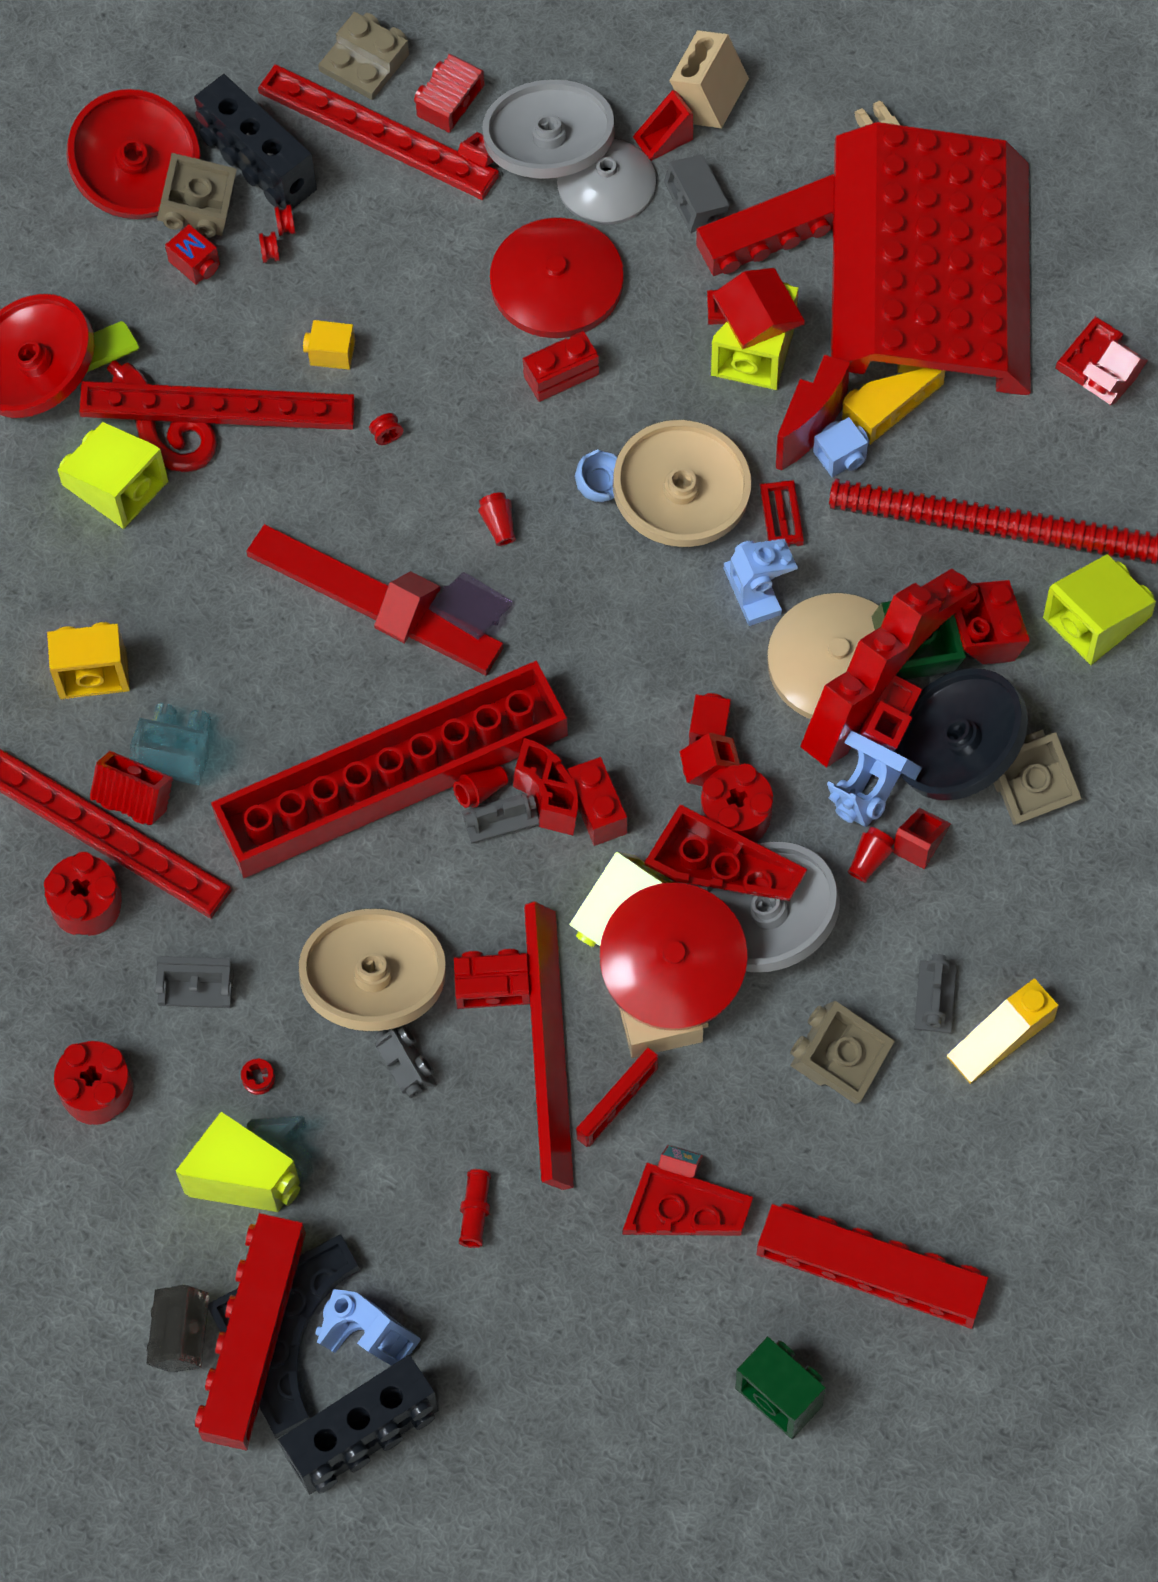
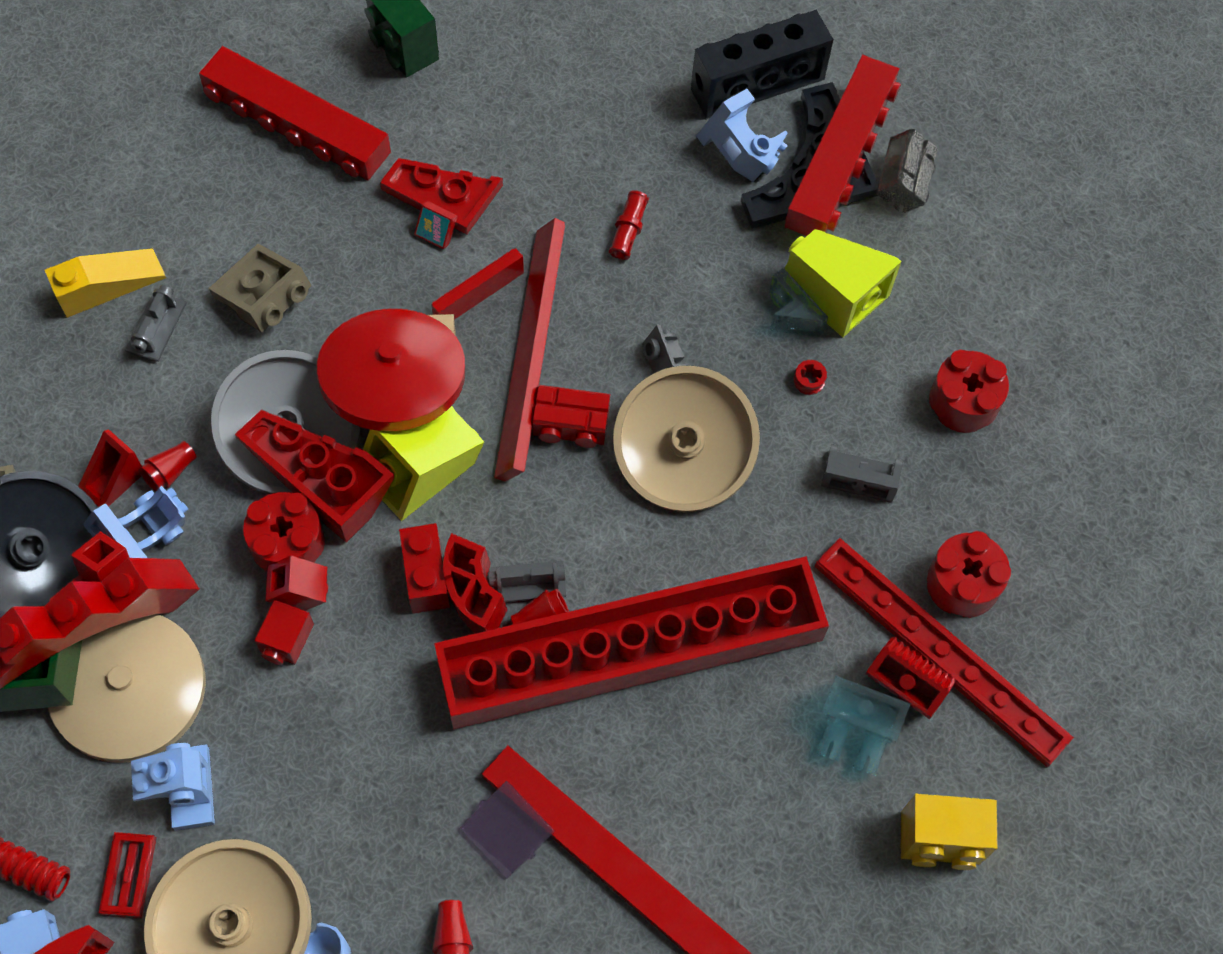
camera: 175 degrees left, 0 degrees up
(405, 605) = (577, 836): slope -> none

